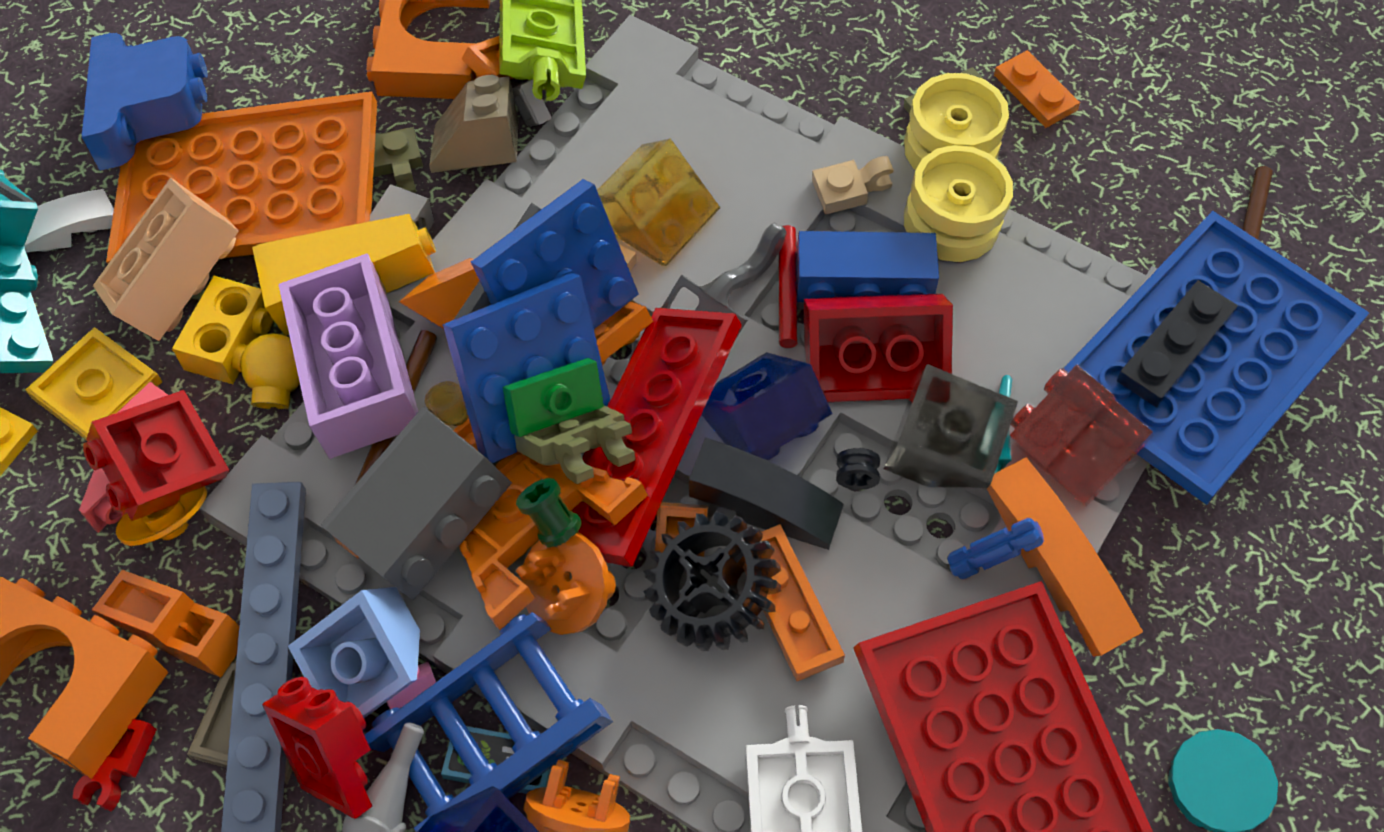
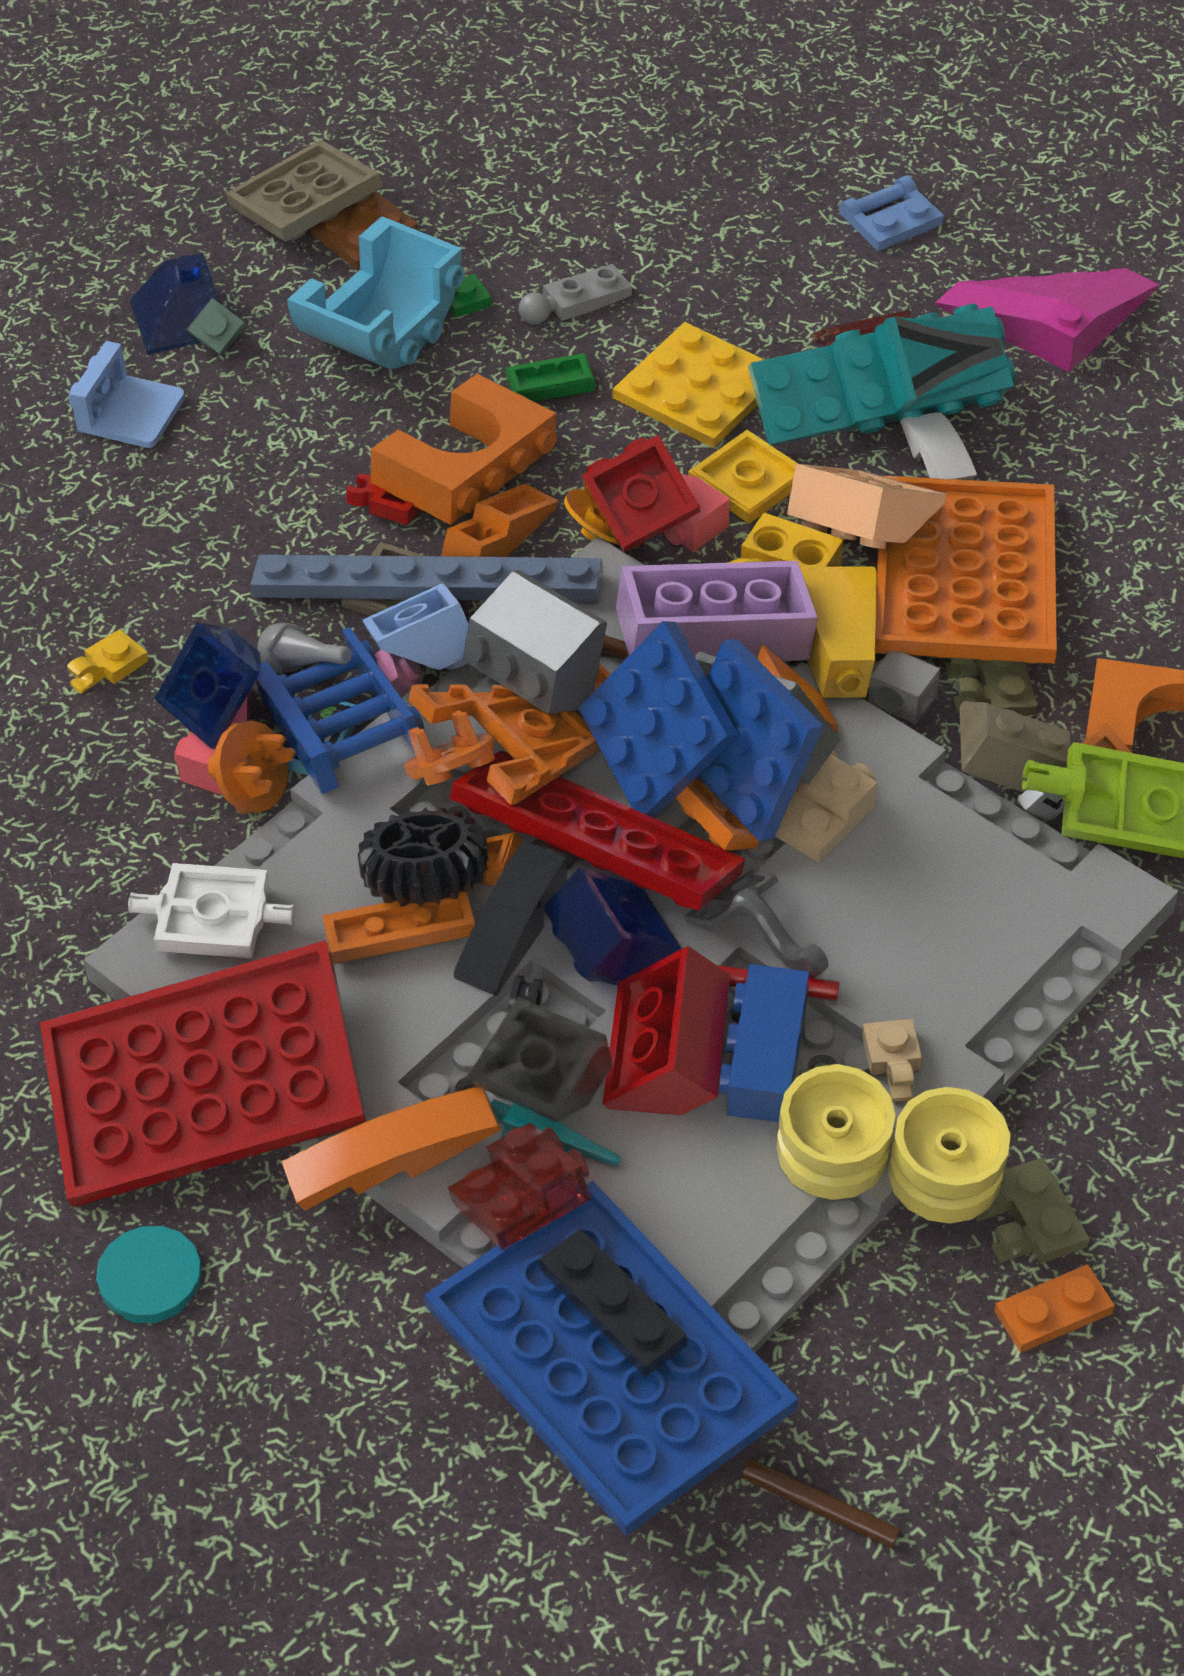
camera: 100 degrees right, 10 degrees down
(139, 94) = (1076, 482): blue brick -> none
(322, 743) = (343, 592): red plate -> none
(548, 512) = (502, 707): dark green bush -> none
(553, 397) = (623, 738): green plate -> none
(570, 438) = (592, 760): olive plate -> none
(657, 201) = (879, 869): clear yellow slope -> none
(995, 548) = (405, 1084): blue axle -> none

